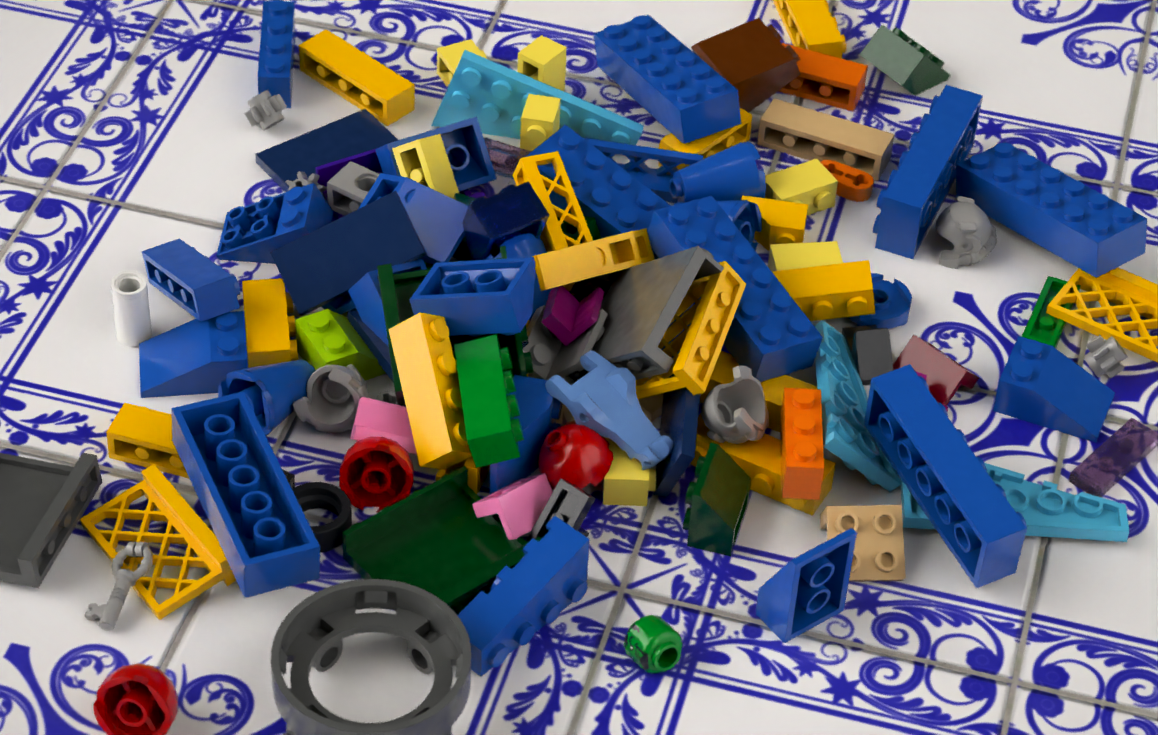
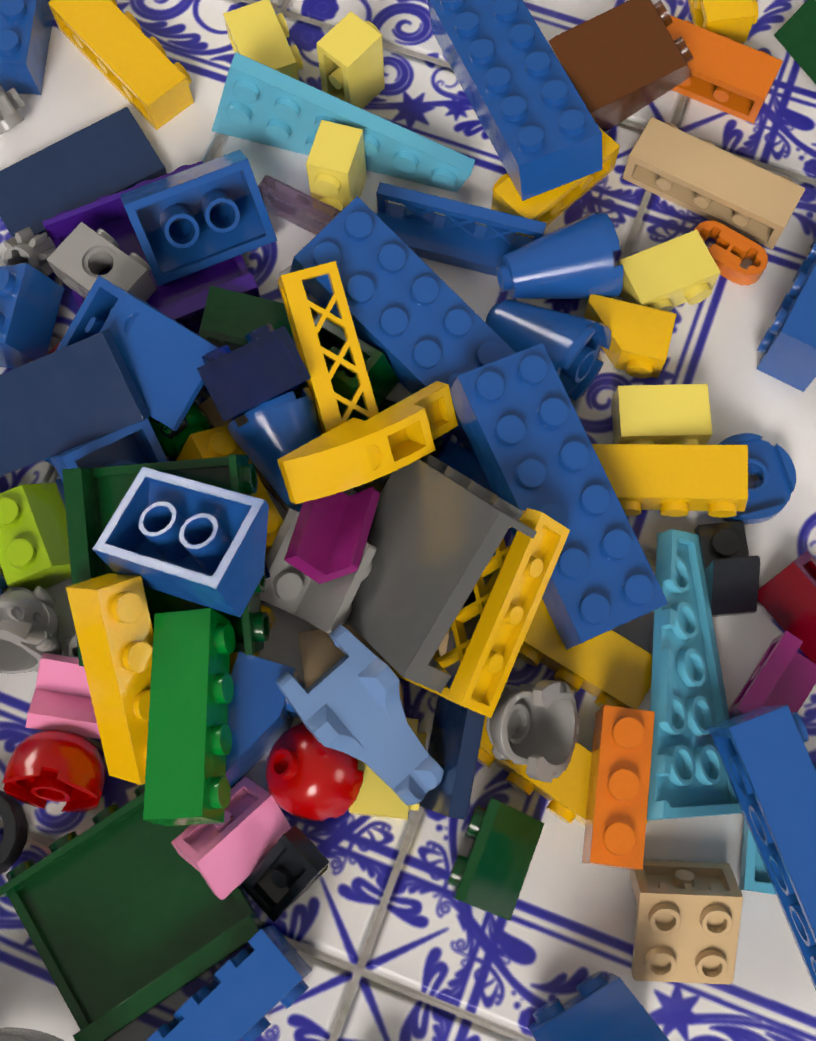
camera: 10 degrees right, 30 degrees up
(427, 164) = (173, 252): light yellow brick -> none

